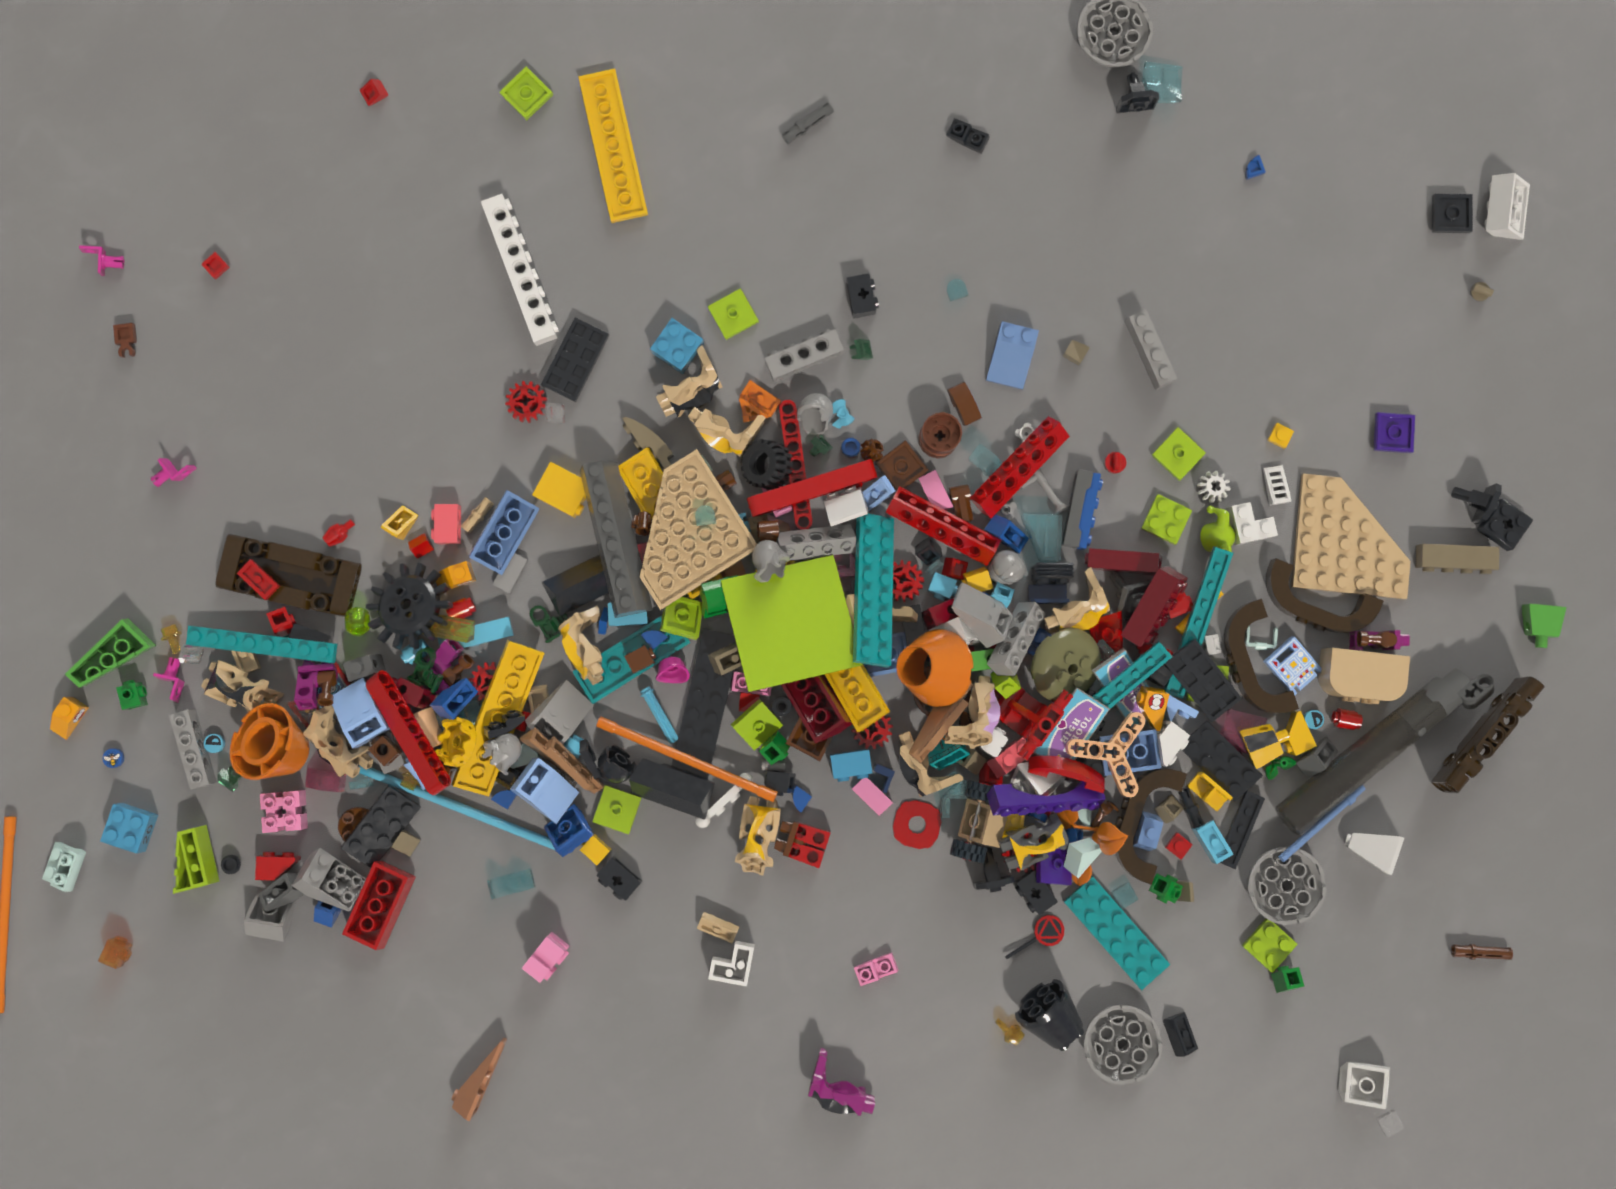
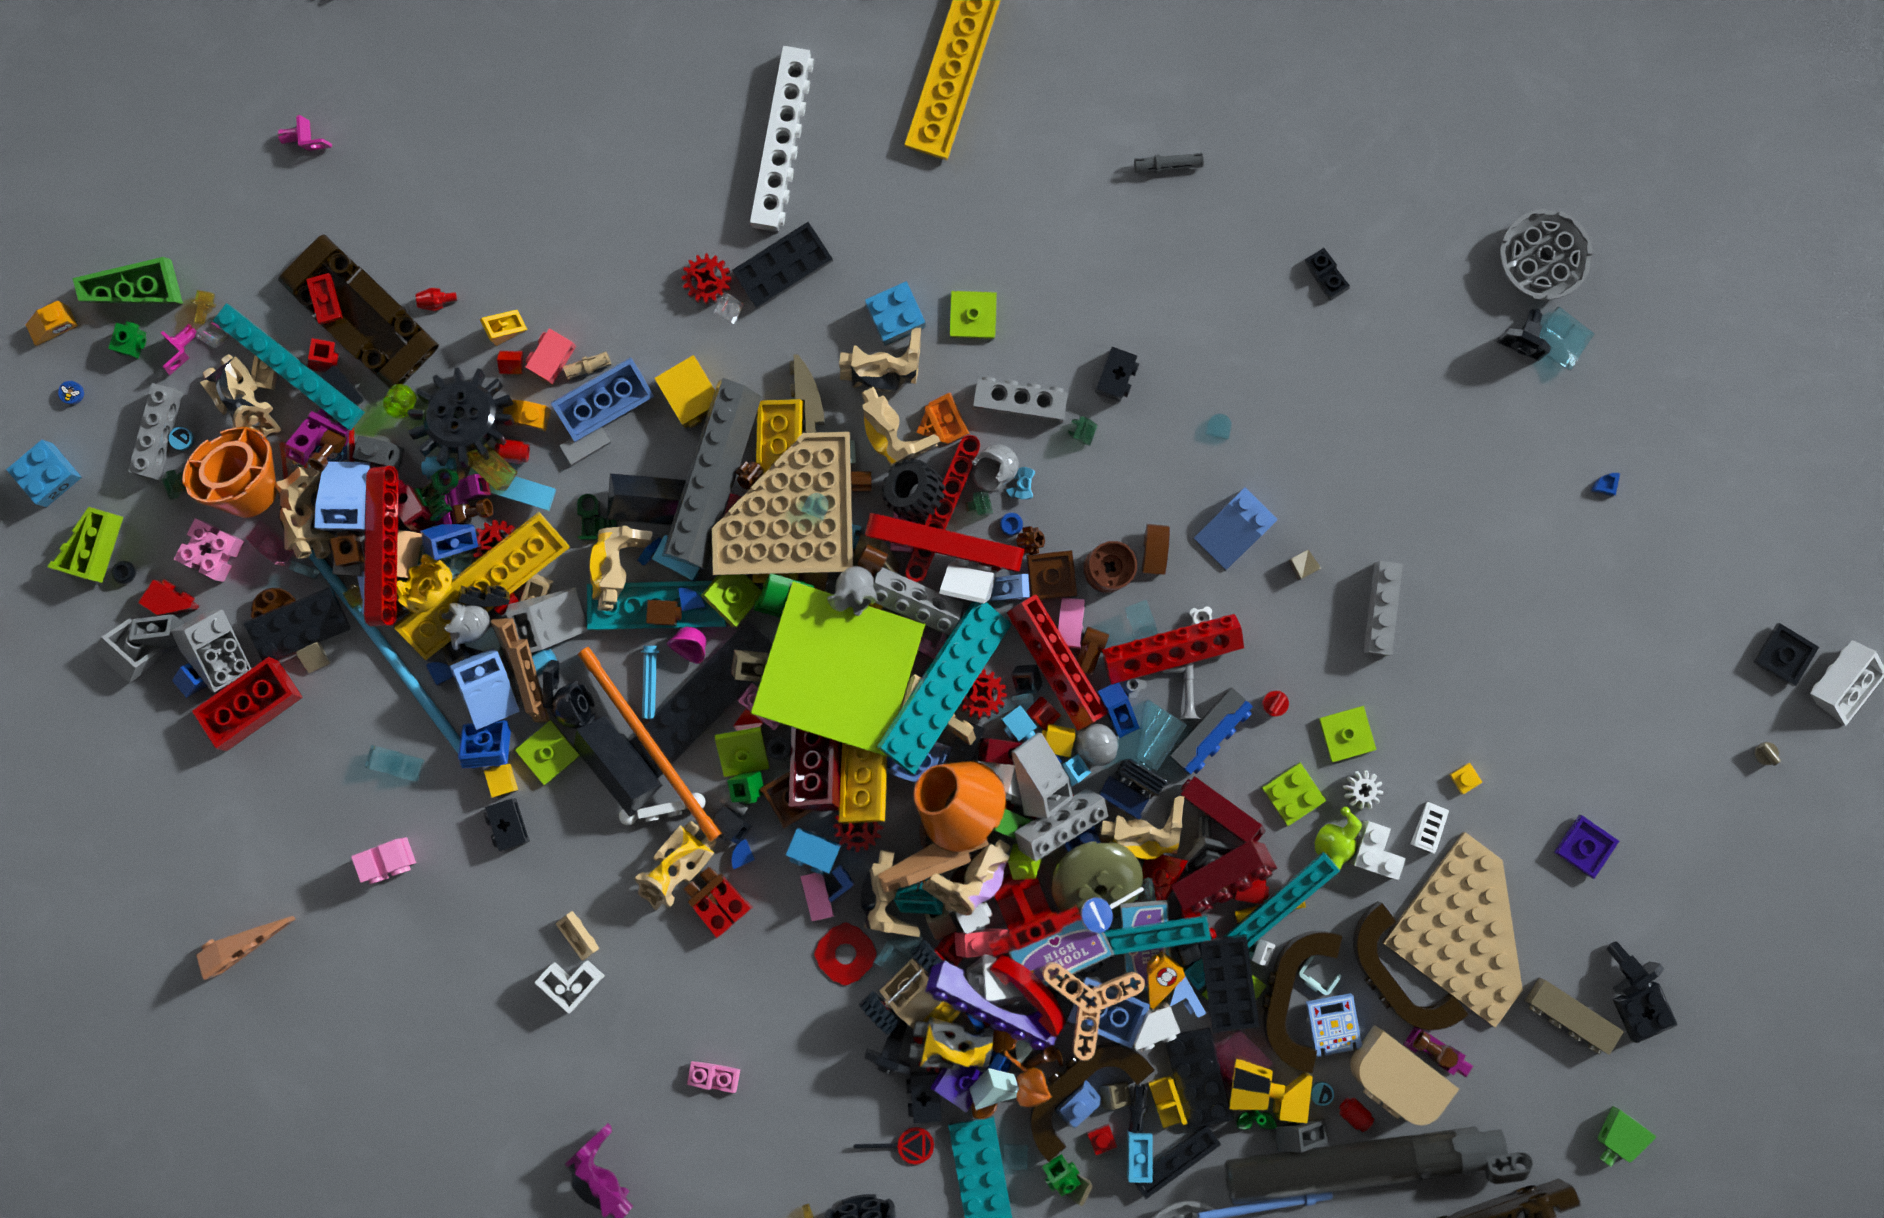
camera: 30 degrees right, 0 degrees up
(1081, 685) = (1097, 913): none -> piece

